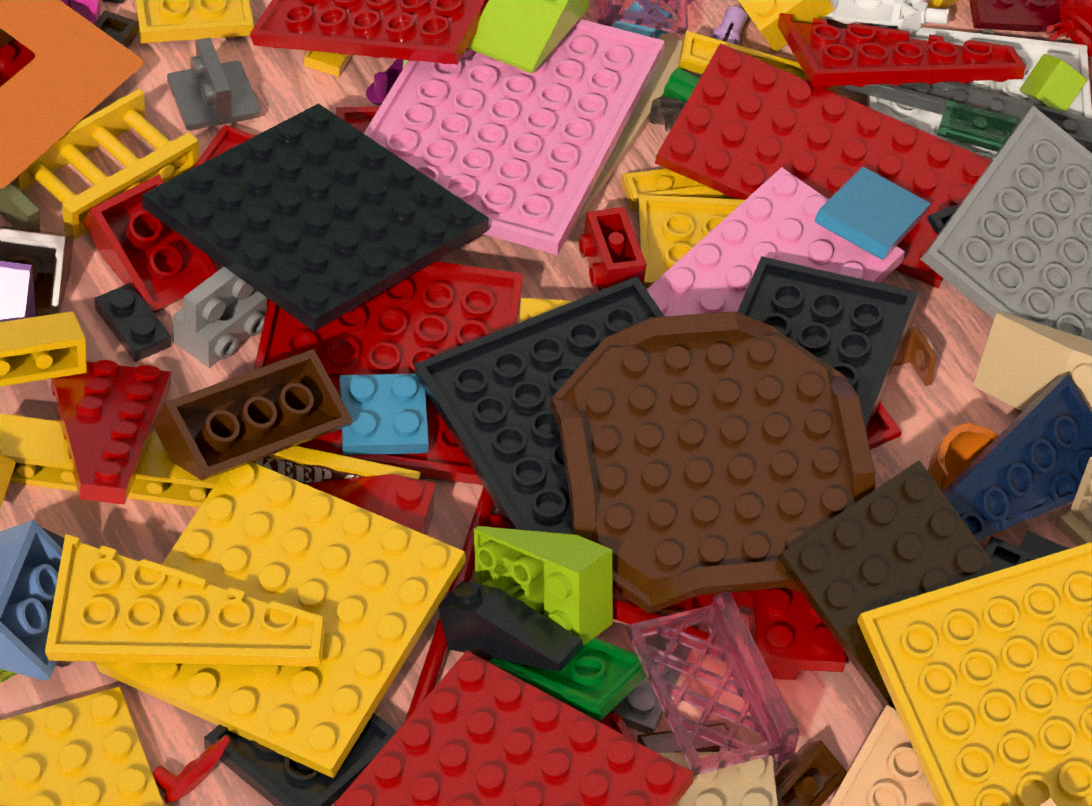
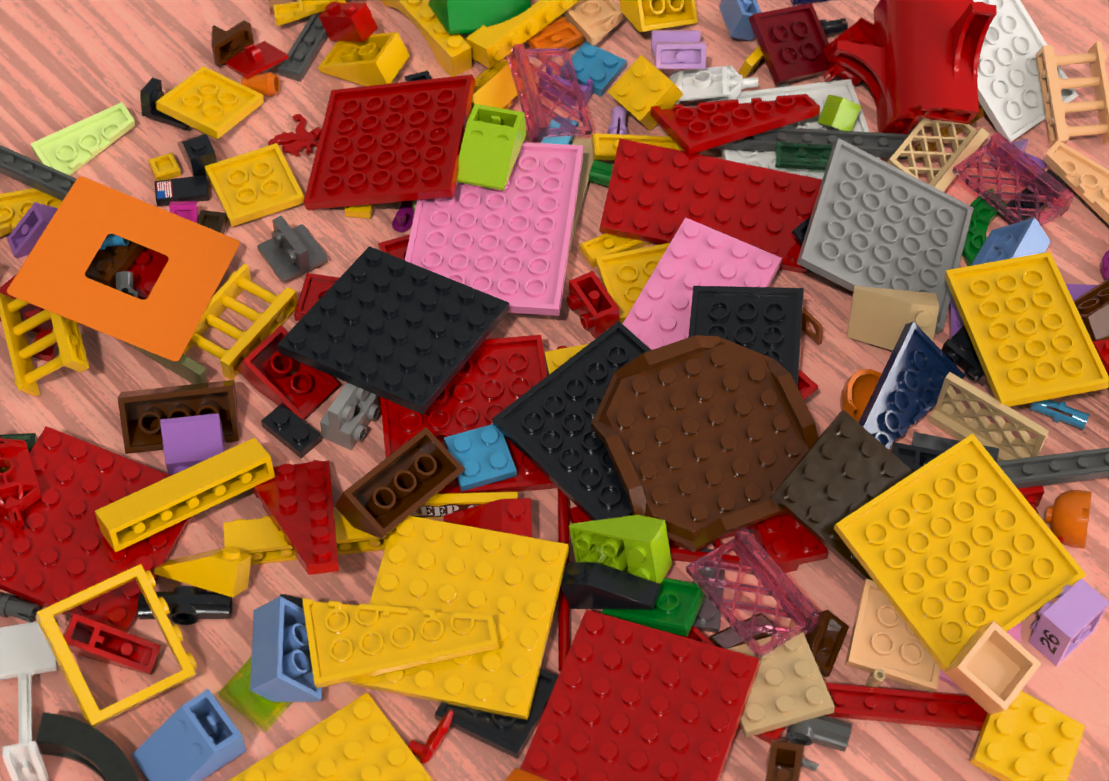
camera: 10 degrees left, 5 degrees up
(665, 111) = (595, 192): clear smoke piece -> none
(872, 212) = (754, 236): dark azure tile -> none

